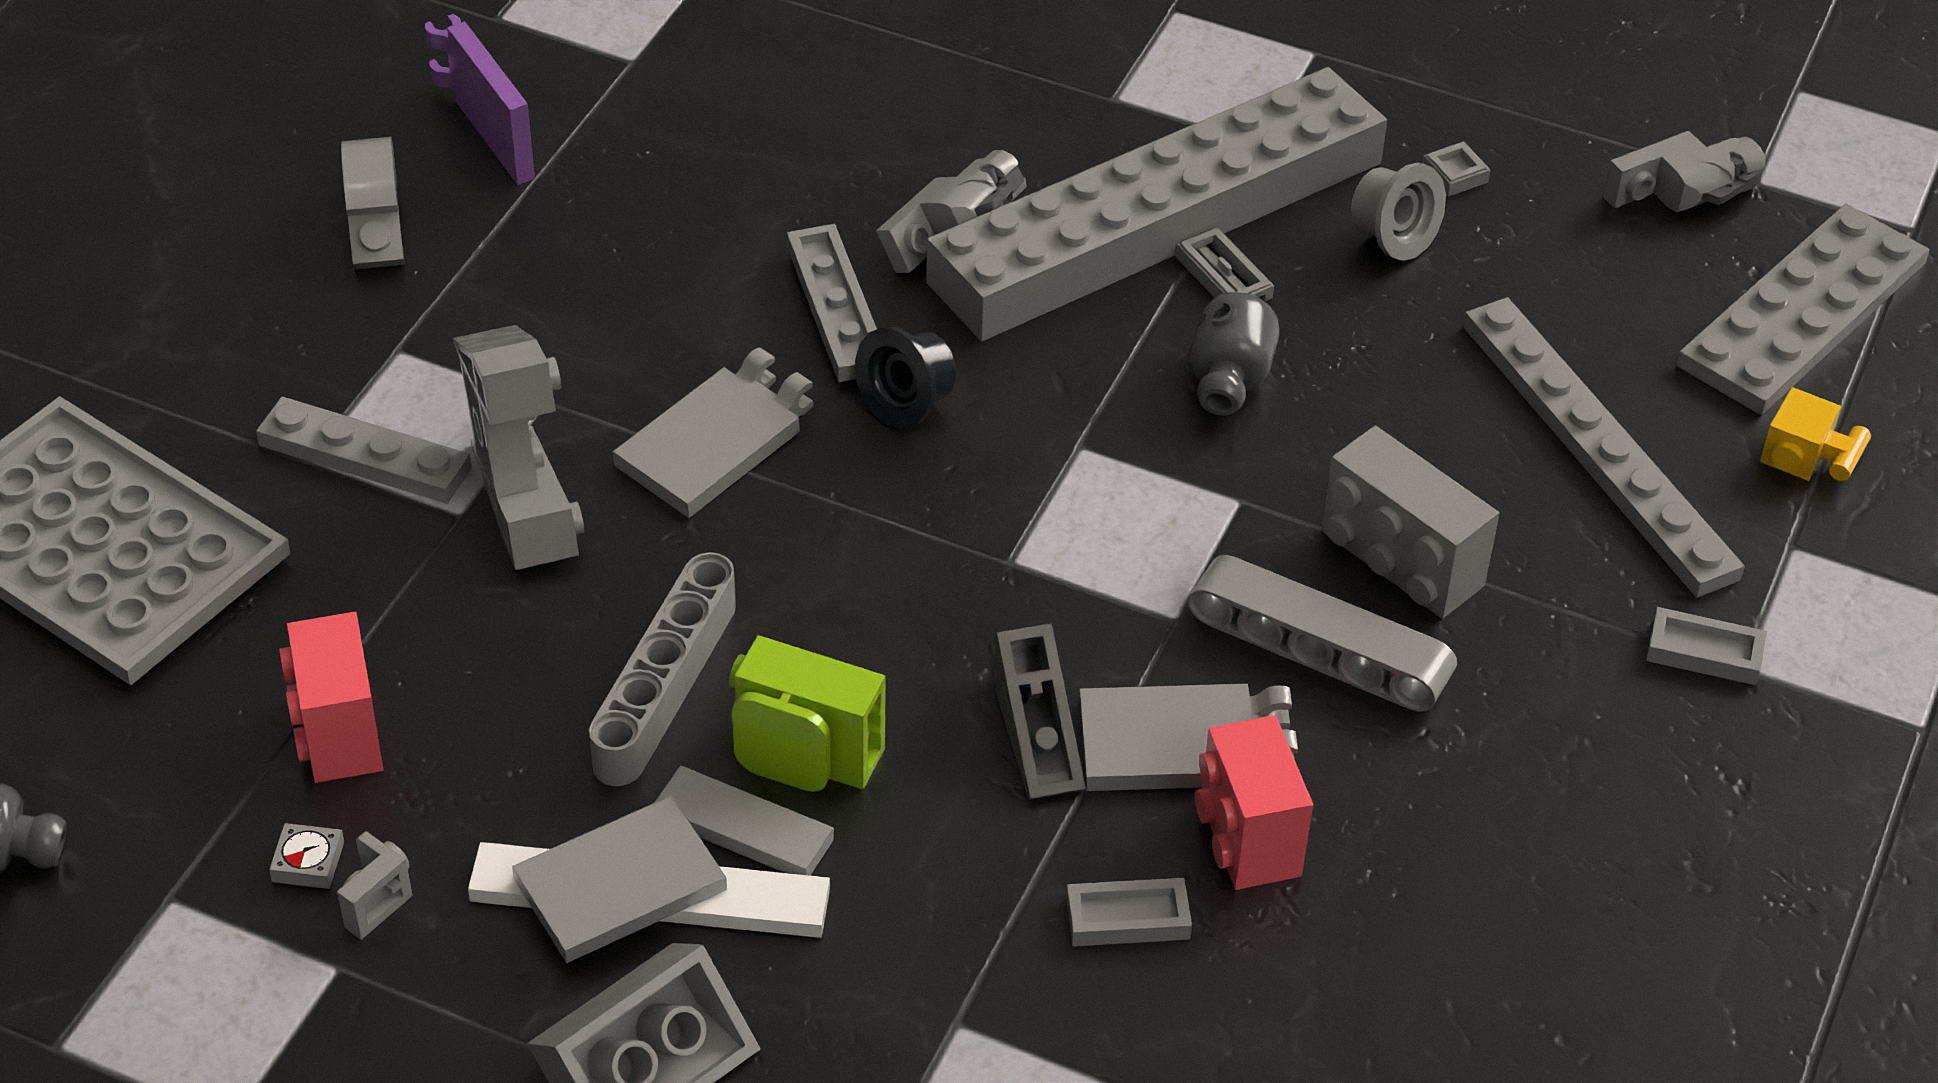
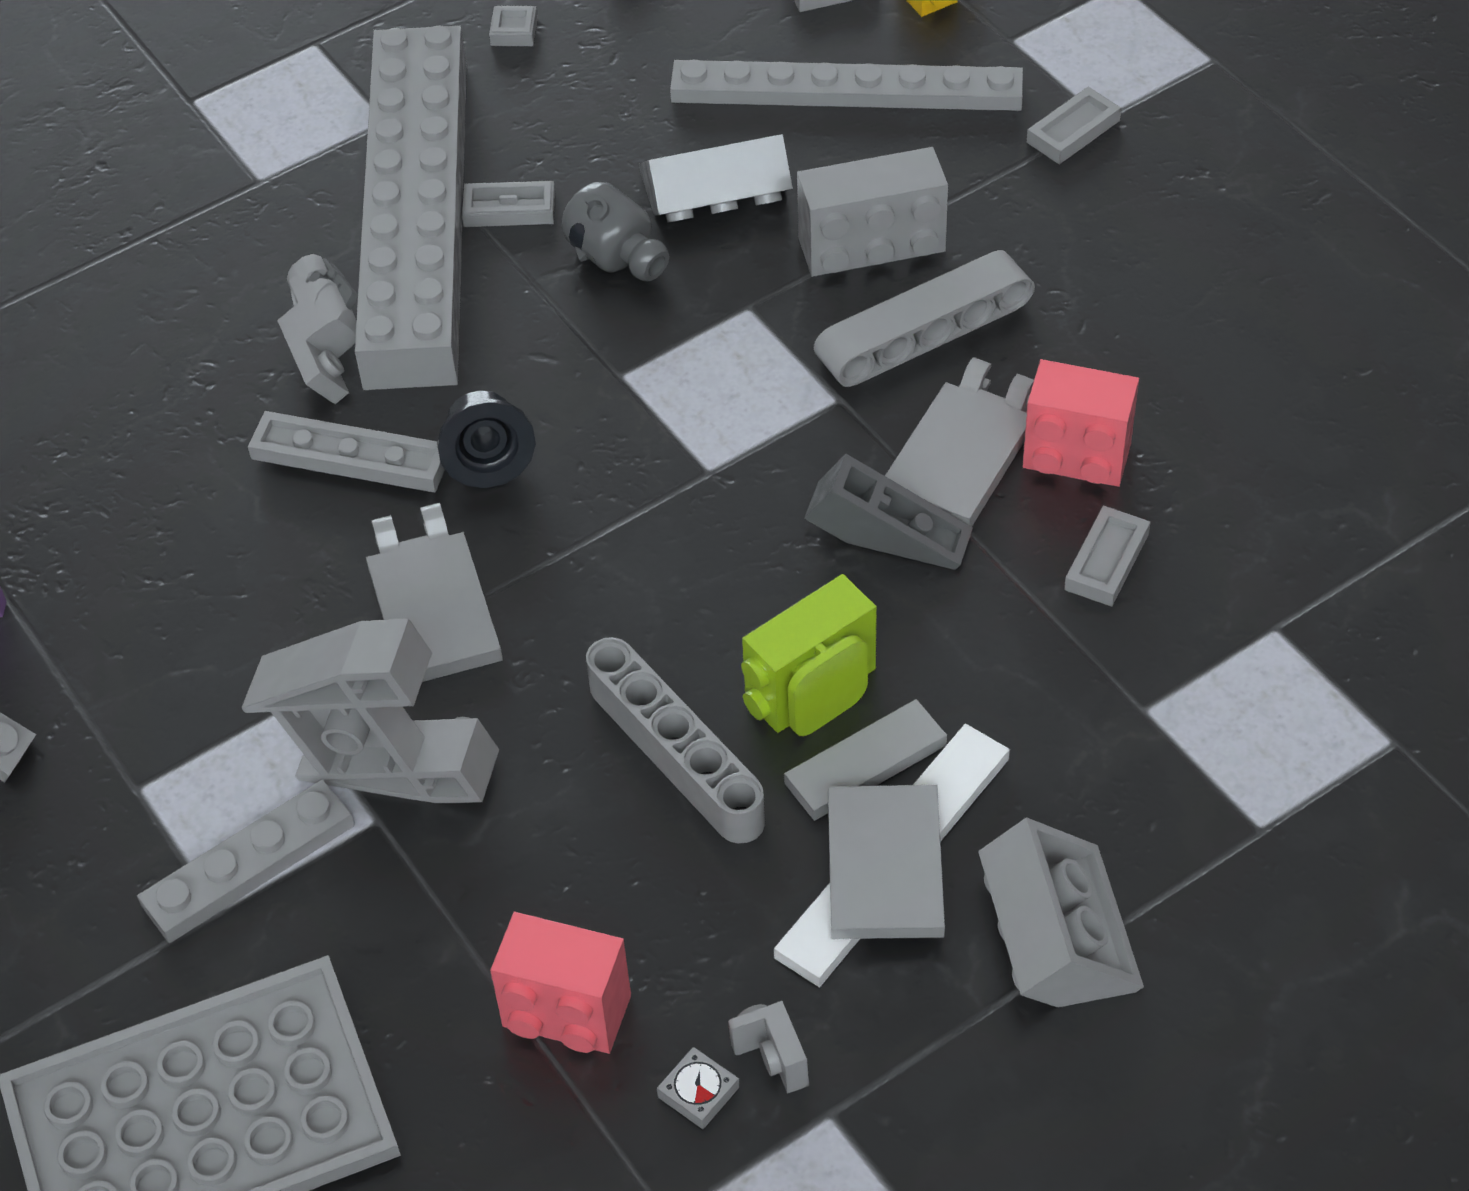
camera: 55 degrees left, 5 degrees up
(1372, 391) = (717, 177): none -> slope
(1400, 208) = (545, 69): light grey piece -> none

